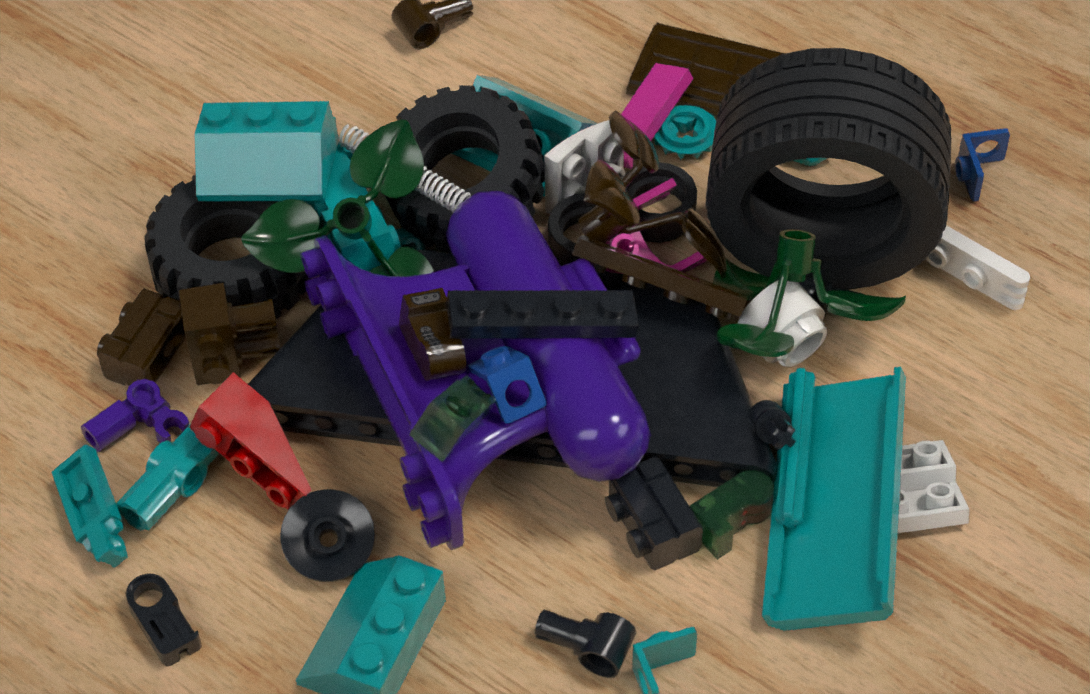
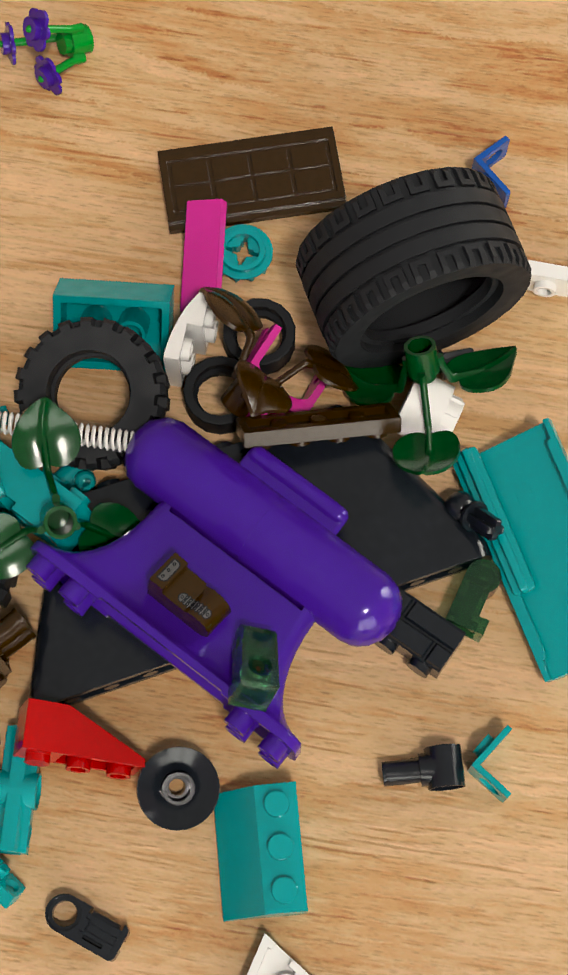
camera: 30 degrees left, 20 degrees up
(501, 368) = (262, 598): blue bracket -> none
(541, 314) = (268, 535): black plate -> none

